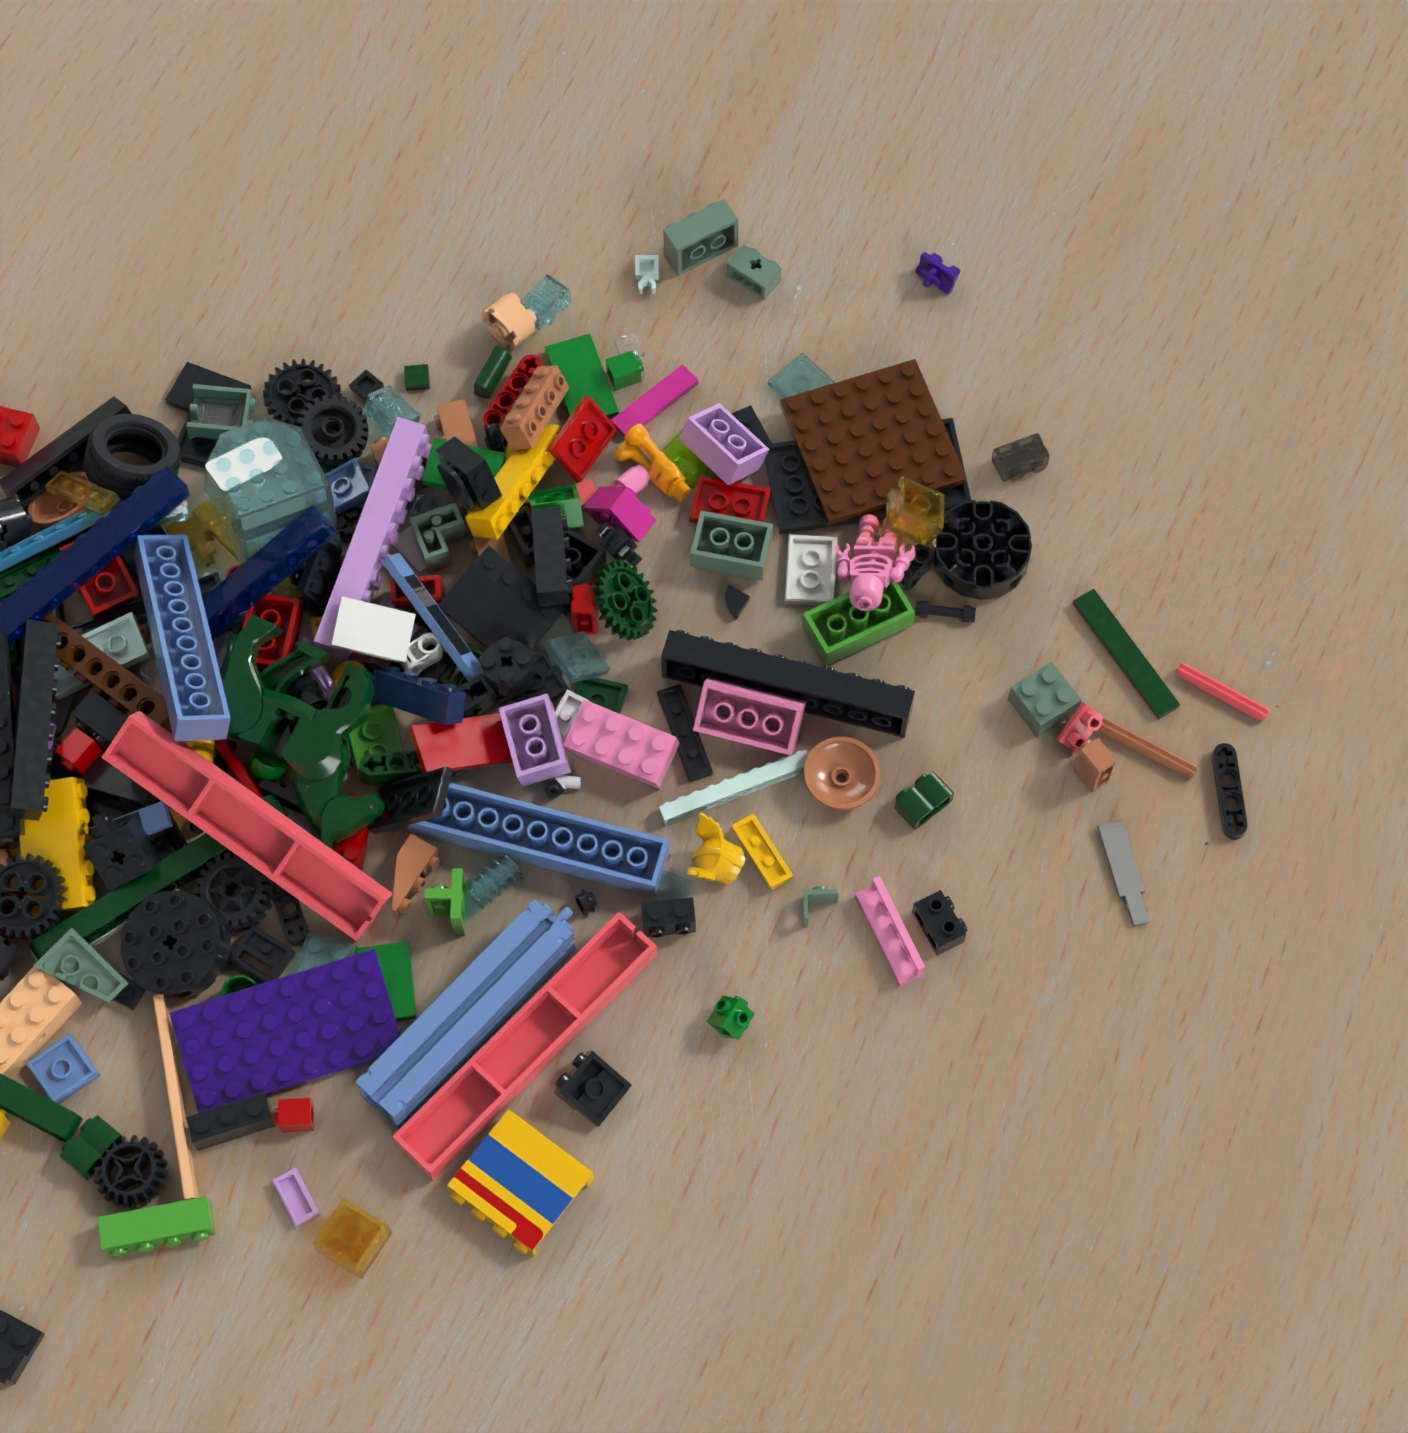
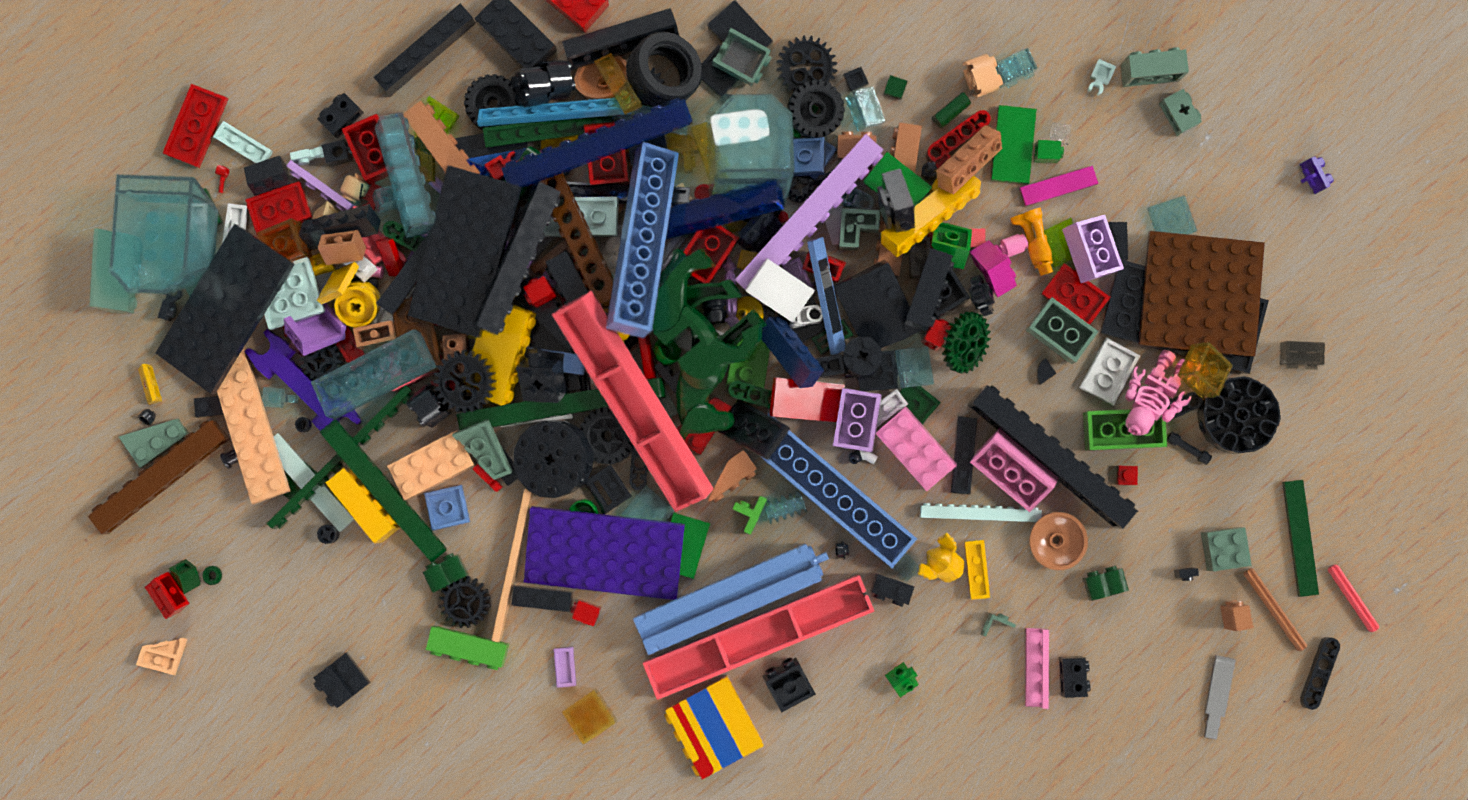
camera: 25 degrees right, 20 degrees up
(99, 1007) = (494, 484): none -> red plate
(582, 439) = (993, 197): red tile -> none
(889, 670) = (1127, 475): none -> red plate
(1013, 747) = (1186, 574): none -> black plate
(1080, 727) = (1239, 582): coral hips -> none

